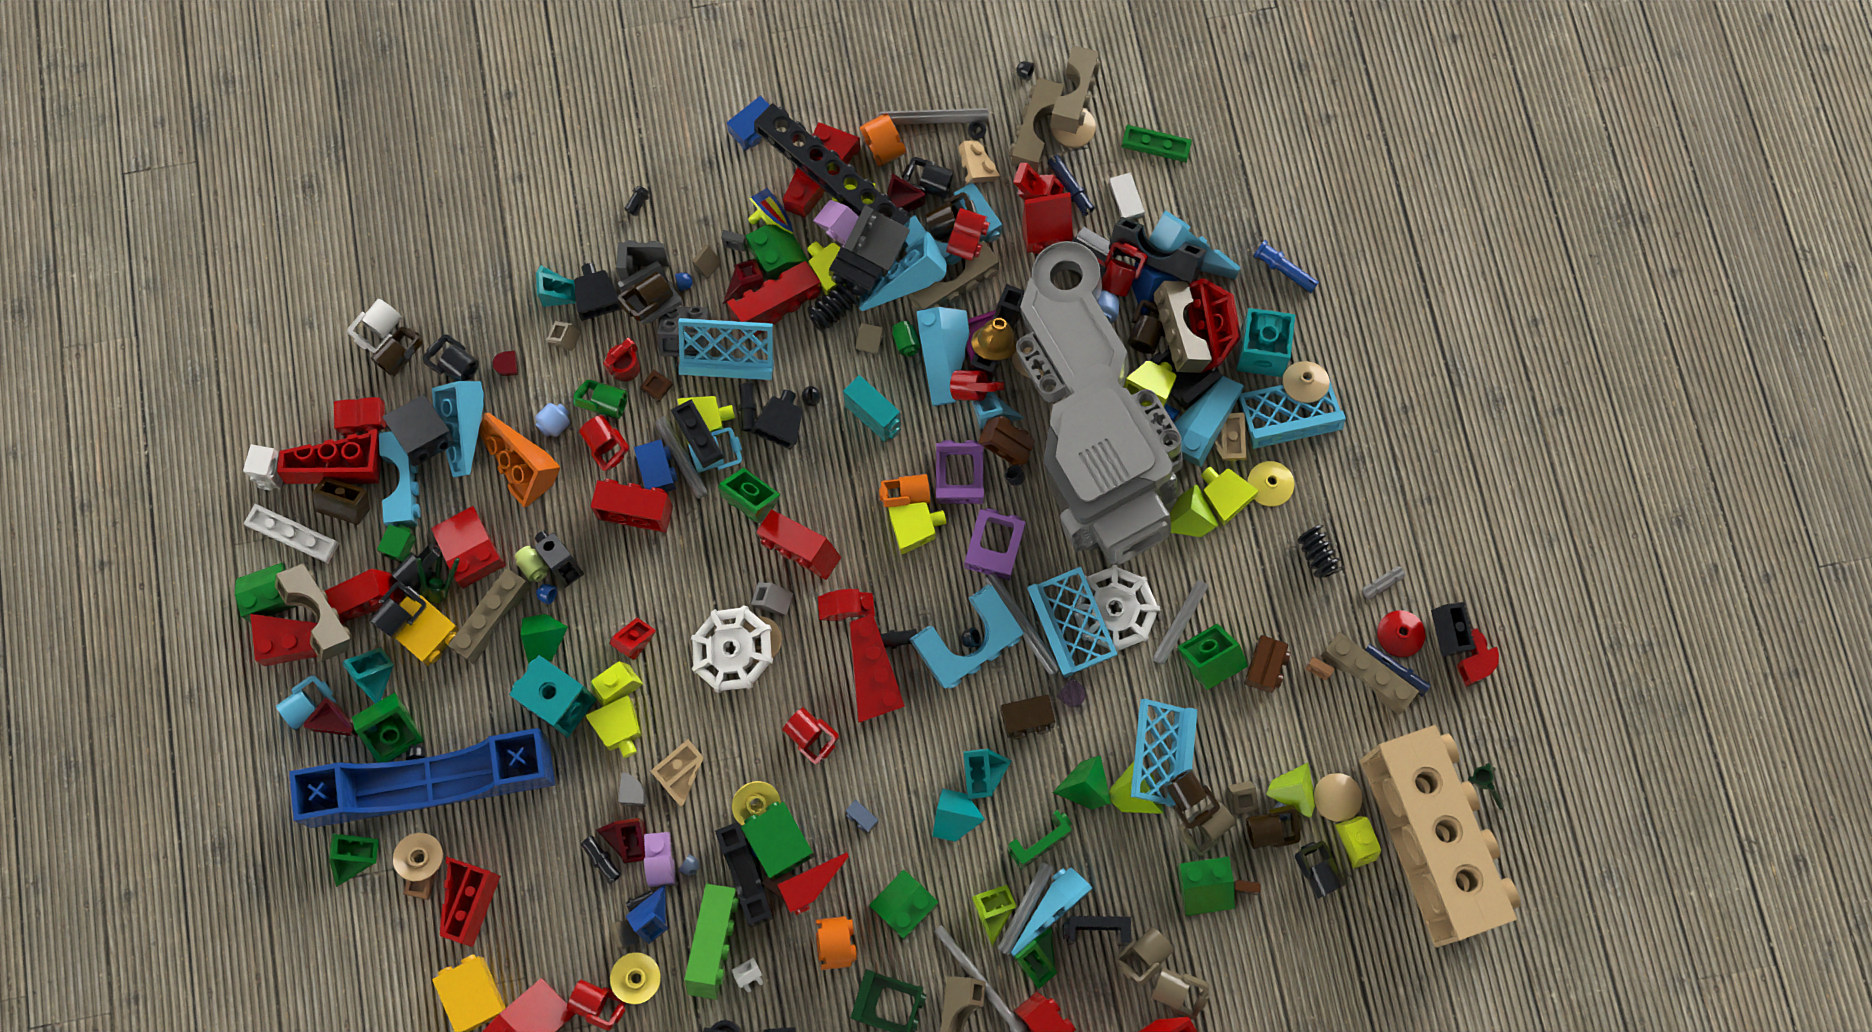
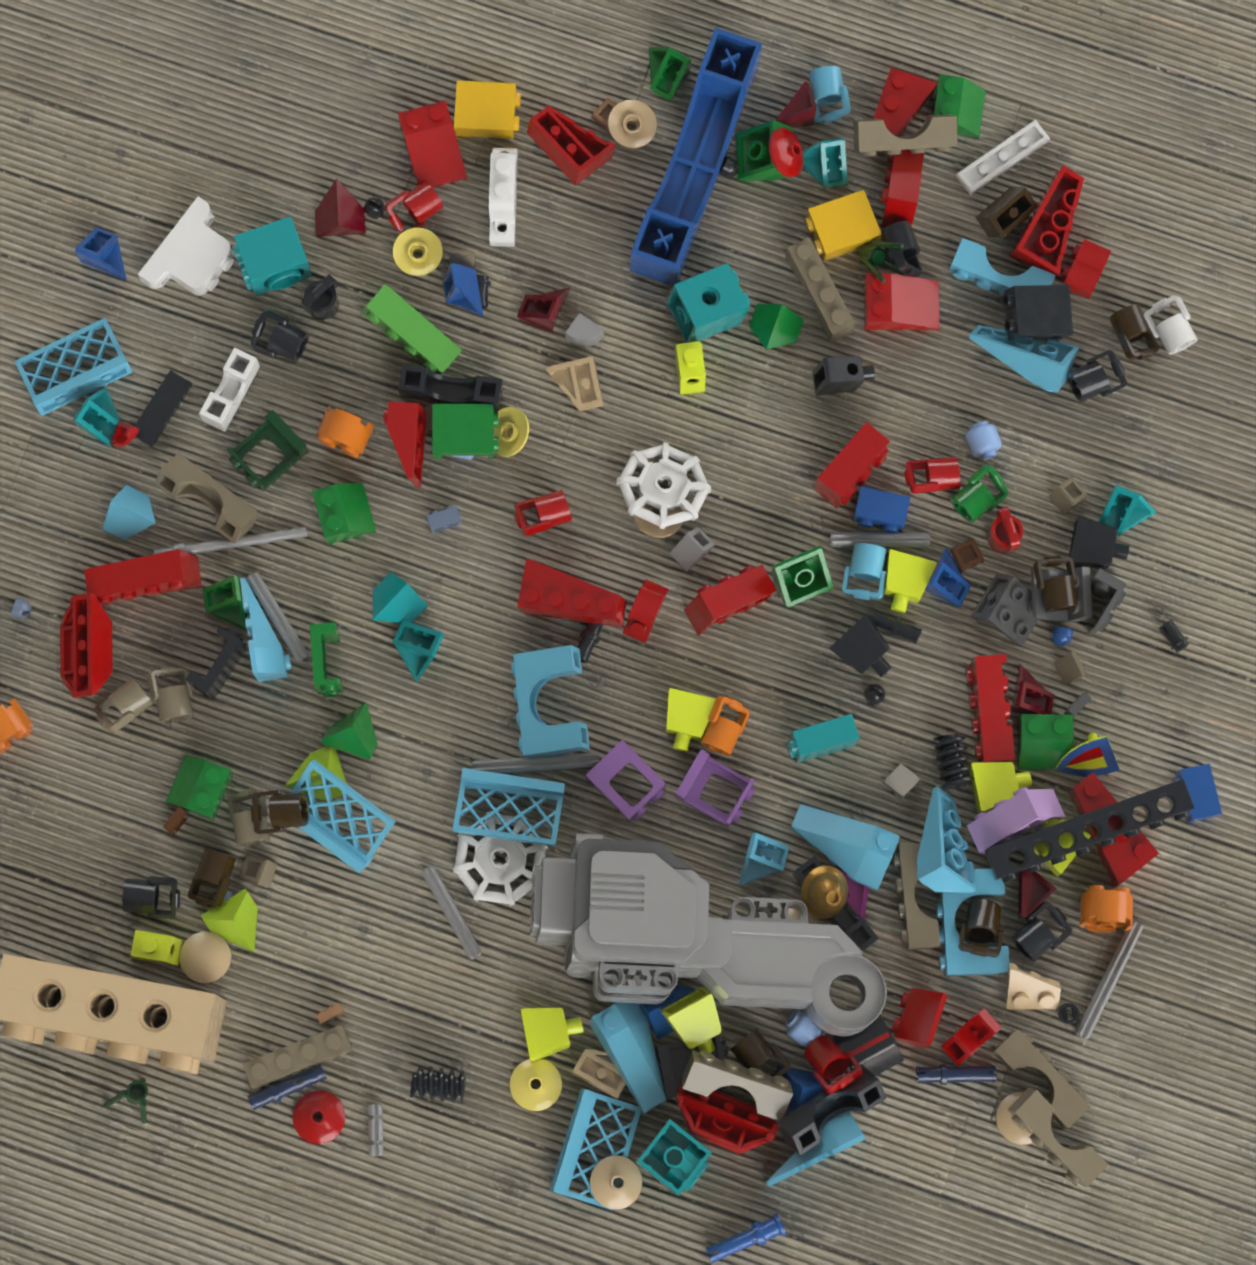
camera: 115 degrees right, 5 degrees up
(262, 467) = (1077, 156): white brick -> none
(379, 706) = (786, 152): none -> red dish
(392, 617) = (862, 201): black piece -> none
(396, 542) = (938, 242): green brick -> none
(506, 363) = (1067, 427): dark red tile -> none
(525, 465) = (951, 394): orange wedge -> none
(531, 564) = (850, 348): yellowish green brick -> none
(541, 931) = (503, 195): none -> white brick
(546, 593) = (814, 351): blue hinge -> none
(600, 859) = (539, 275): black pin -> none
(617, 725) = (651, 349): neon yellow torso -> none
(632, 638) = (725, 403): red slope -> none
(658, 860) = (504, 320): lavender brick -> none
(684, 387) = (948, 581): none -> blue slope
(689, 866) = (488, 348): sand blue hinge -> none
(697, 433) = (888, 559): black tile -> none
(730, 366) = (951, 626): medium azure fence -> none
(747, 973) = (365, 346): white tile -> none
(855, 272) = (972, 797): black brick -> none
(877, 238) = (991, 831): dark grey bracket -> none
(906, 338) = (881, 815): green brick -> none
(967, 235) = (949, 926): red brick -> none
(971, 638) = (549, 708): black hinge -> none
(972, 385) = (793, 850): red piece -> none
(994, 910) = (292, 587): lime slope -> none
(1006, 440) = (718, 847): reddish brown brick -> none
(1014, 475) = (683, 839): black hinge -> none
(1025, 70) = (1111, 1104): black hinge -> none
(1028, 717) = (444, 716): dark brown brick -> none
(1072, 694) = (443, 772): clear purple tile -> none
(1126, 196) = (913, 1124): white tile -> none
(1156, 143) = (955, 1192): green tile -> none
(1192, 514) = (548, 984): lime slope -> none
(1213, 656) = (401, 920): green slope -> none
(1267, 664) = (363, 966): reddish brown brick -> none
(1453, 629) = (290, 1162): black brick -> none
(1481, 663) = (243, 1174): red brick -> none

